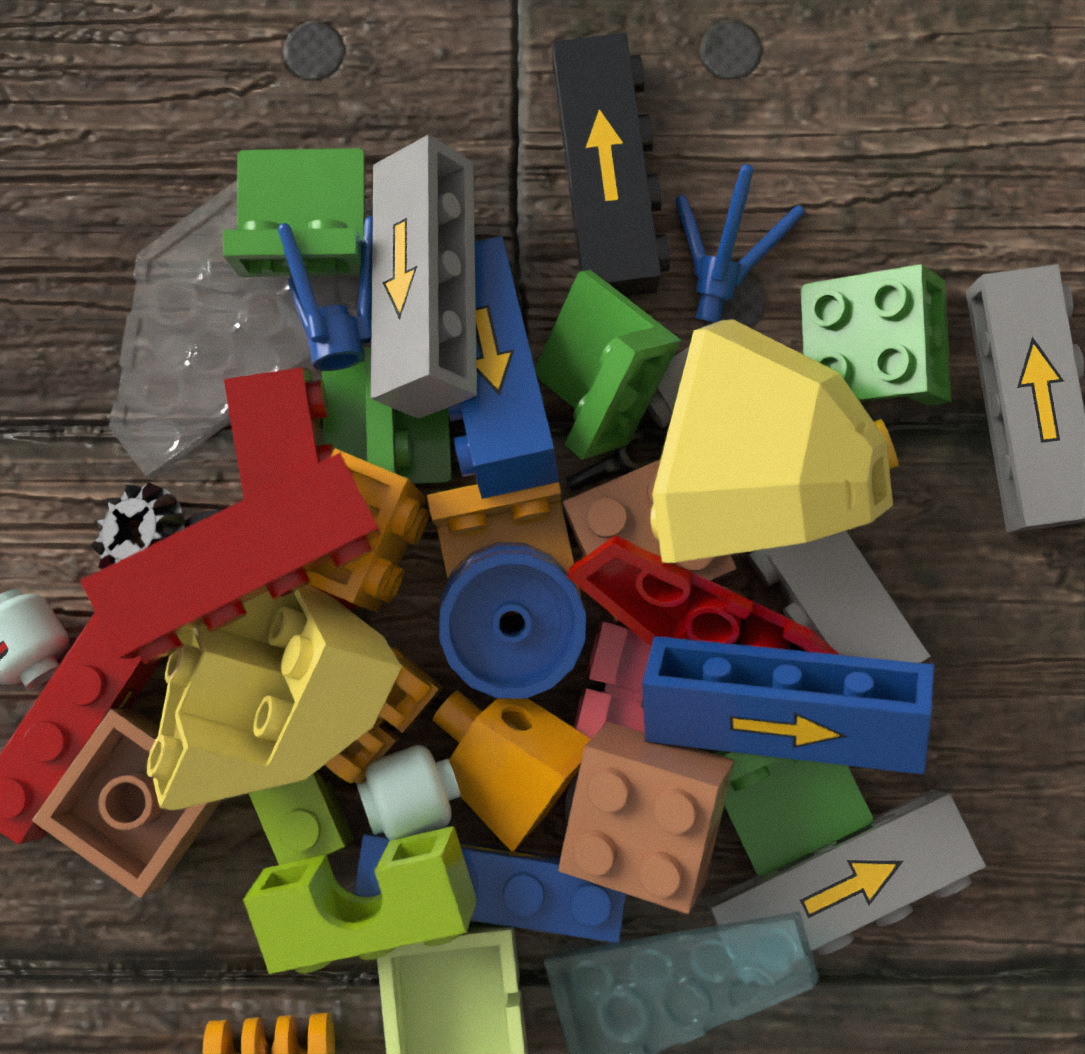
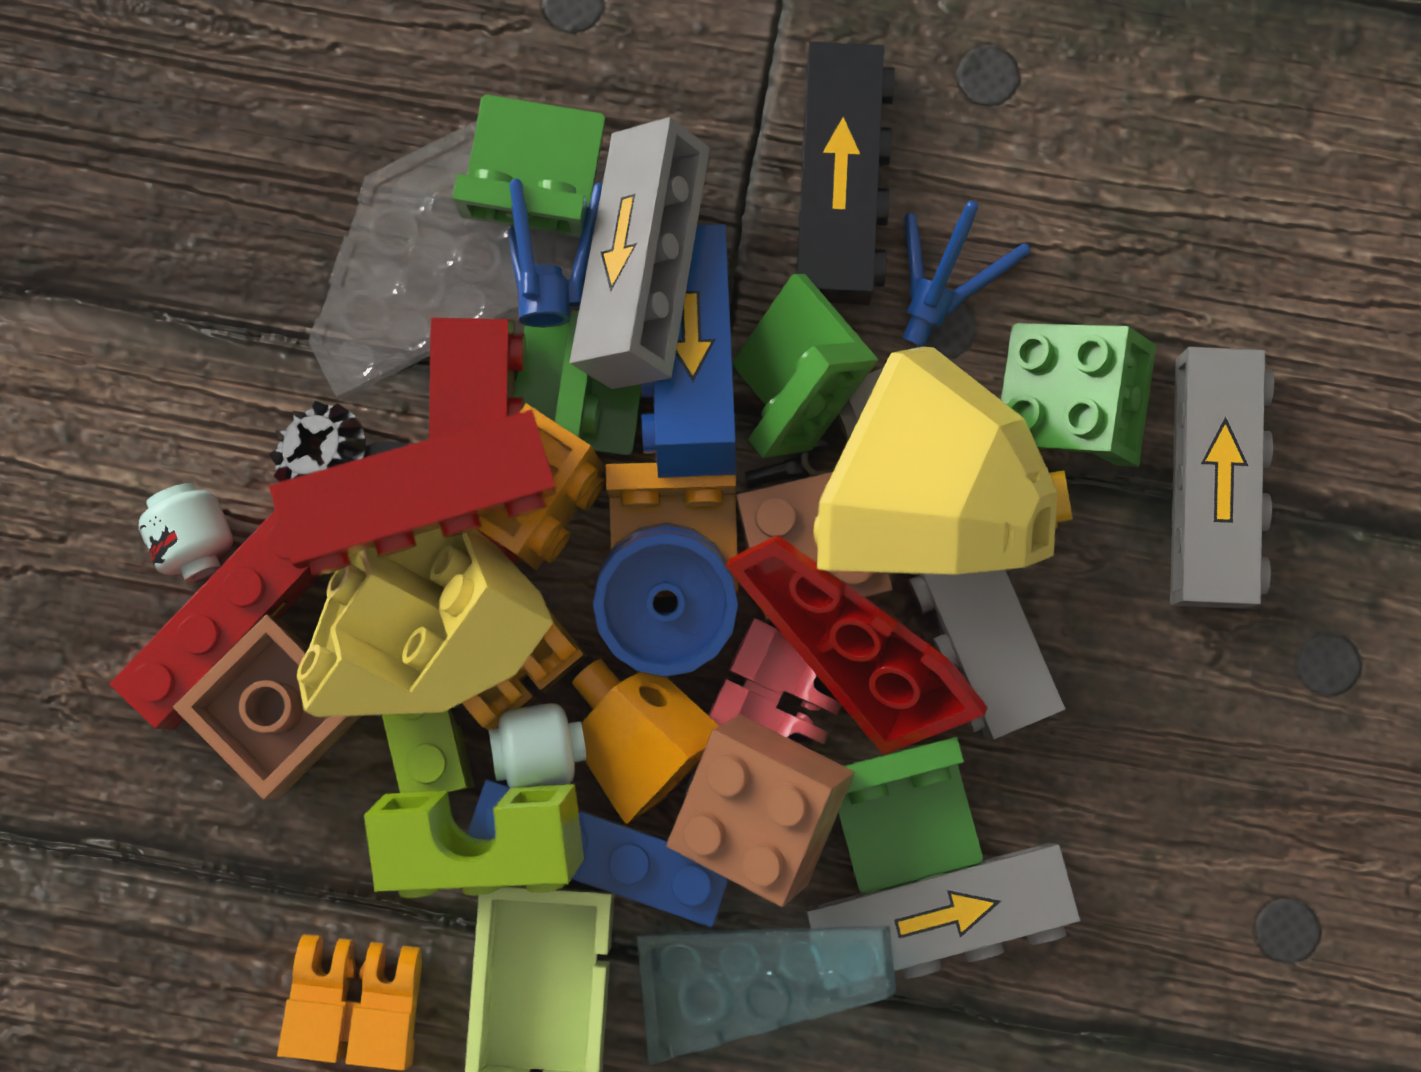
camera: 10 degrees right, 0 degrees up
(788, 704) = (913, 725): blue brick -> none

